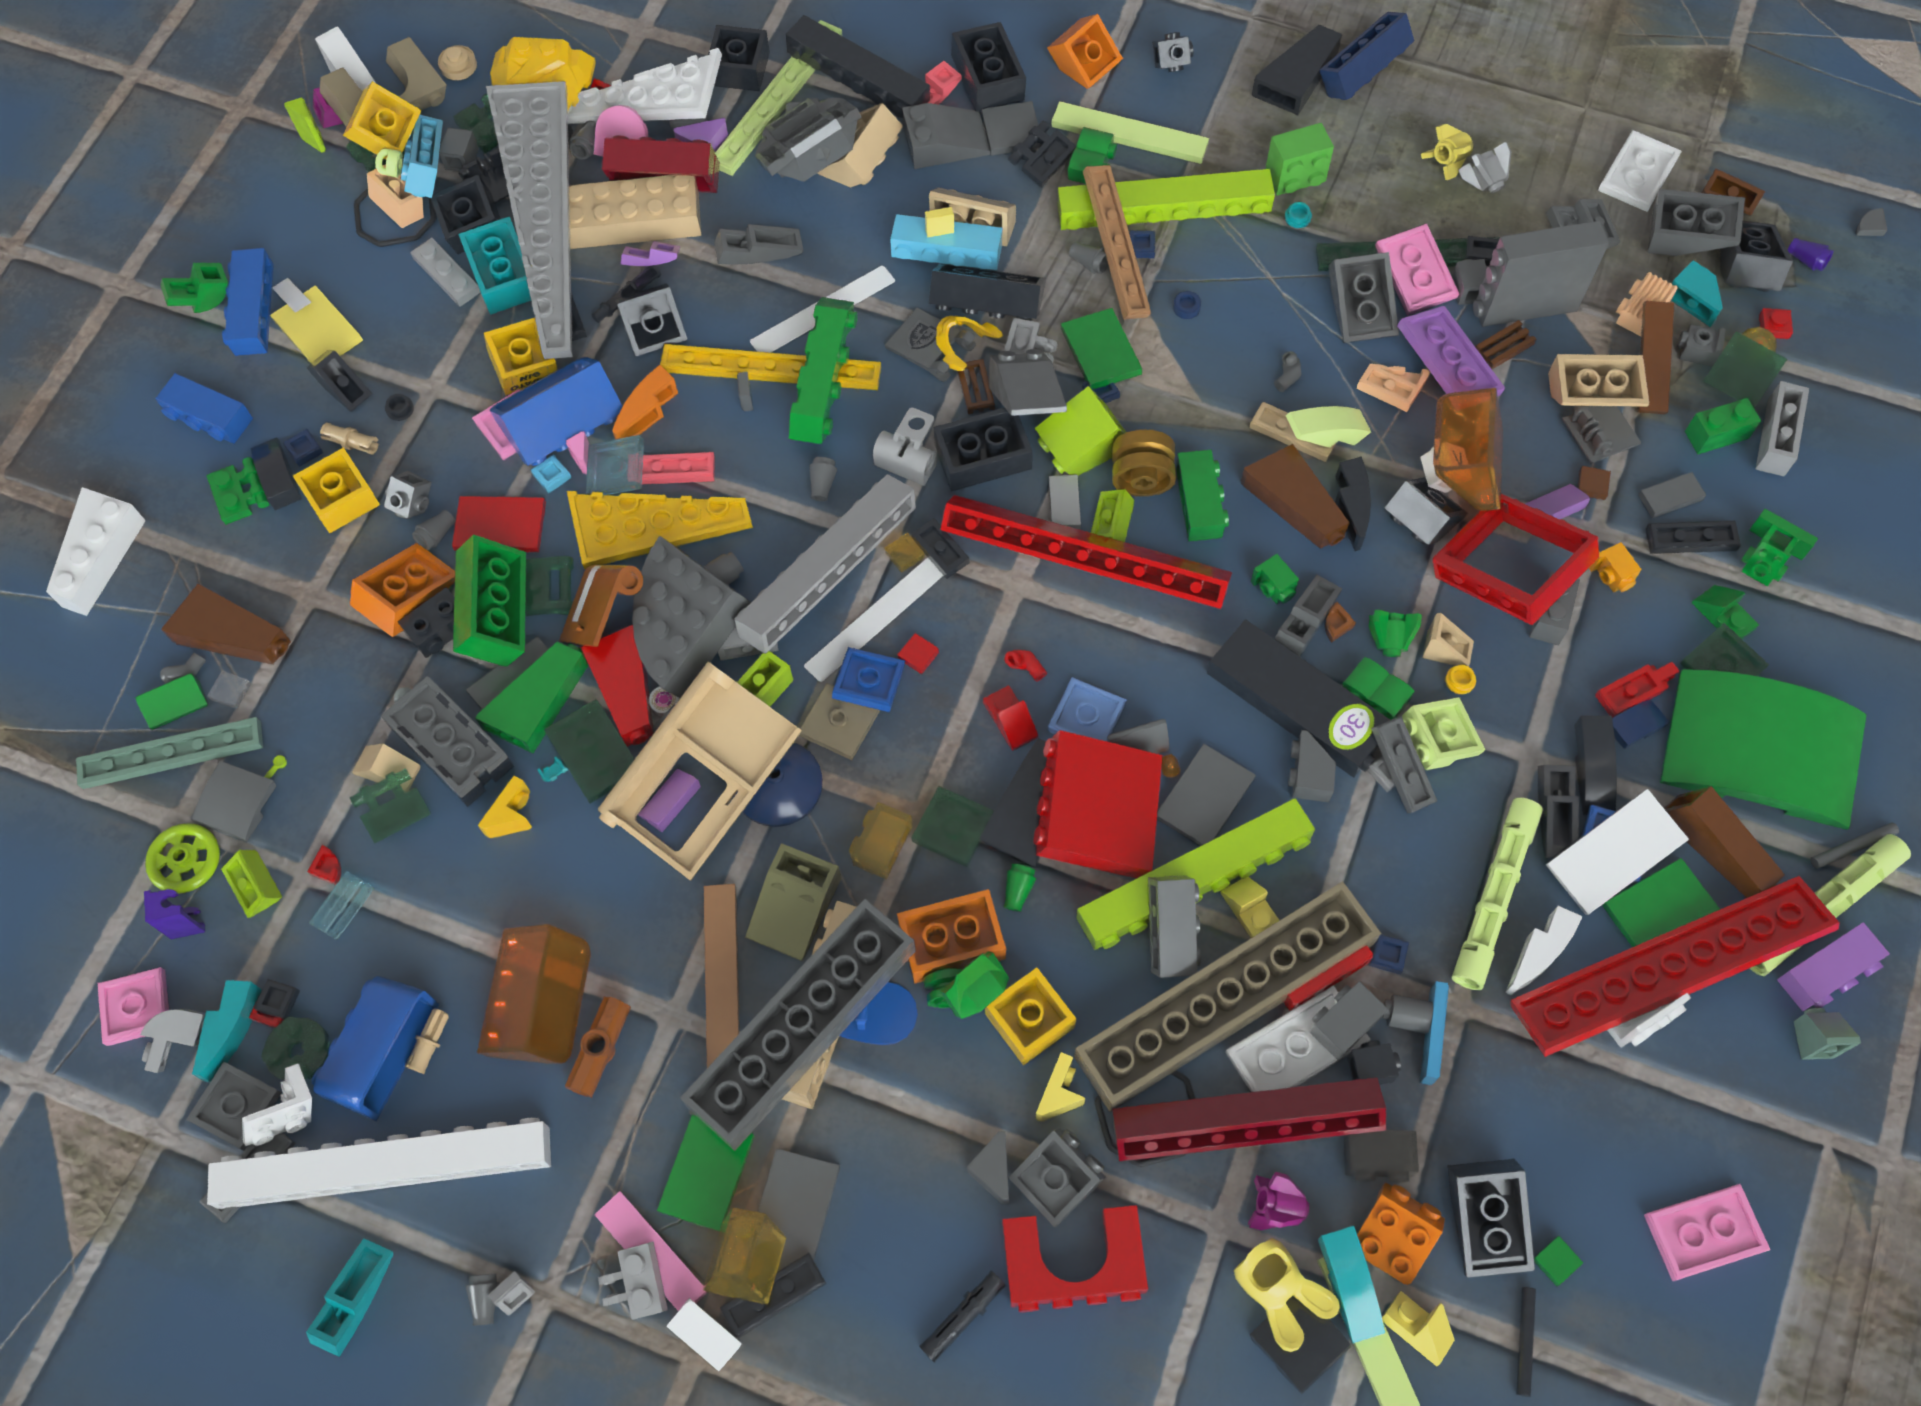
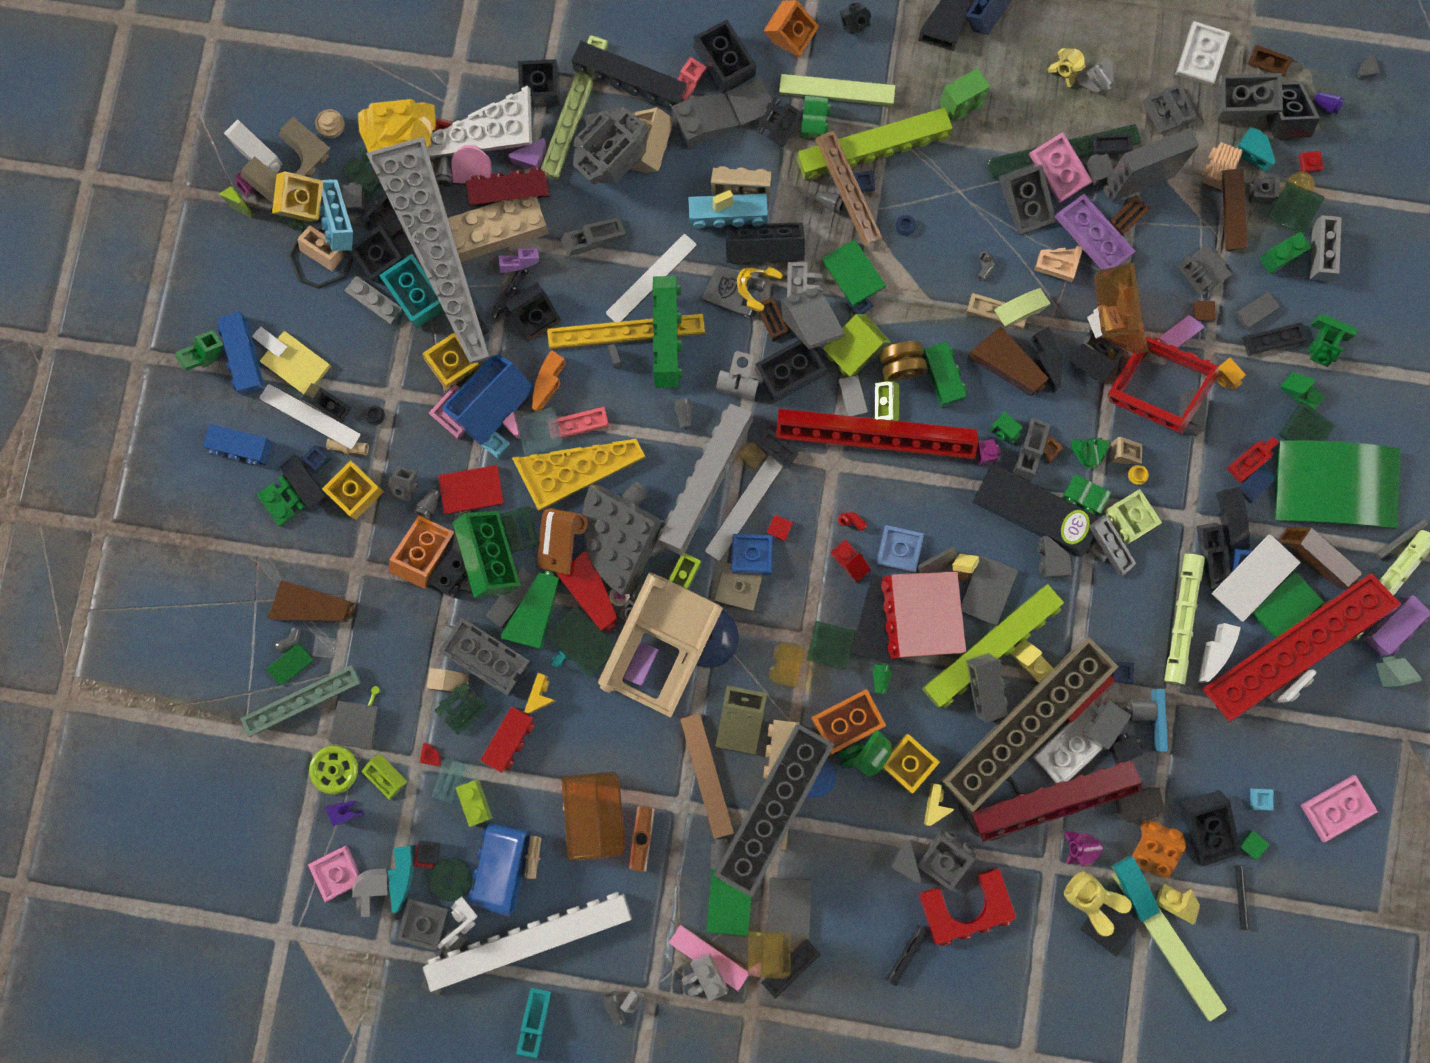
camera: 10 degrees left, 15 degrees up
(92, 549) = (197, 566): white wedge -> none
(312, 392) = (310, 416): none -> white sticker
(366, 942) = (474, 803): none -> lime brick
(393, 163) = (316, 228): yellowish green tile -> none
(444, 864) = (508, 740): none -> red brick
(704, 1334) = (755, 999): white slope -> none
(1179, 749) = (965, 563): none -> light yellow tile
(1241, 605) = (987, 452): none -> magenta brick
(1298, 215) = (970, 138): teal plate -> none
(1581, 1191) = (1262, 799): none -> medium azure tile
(1598, 380) = (1199, 237): tan slope -> none

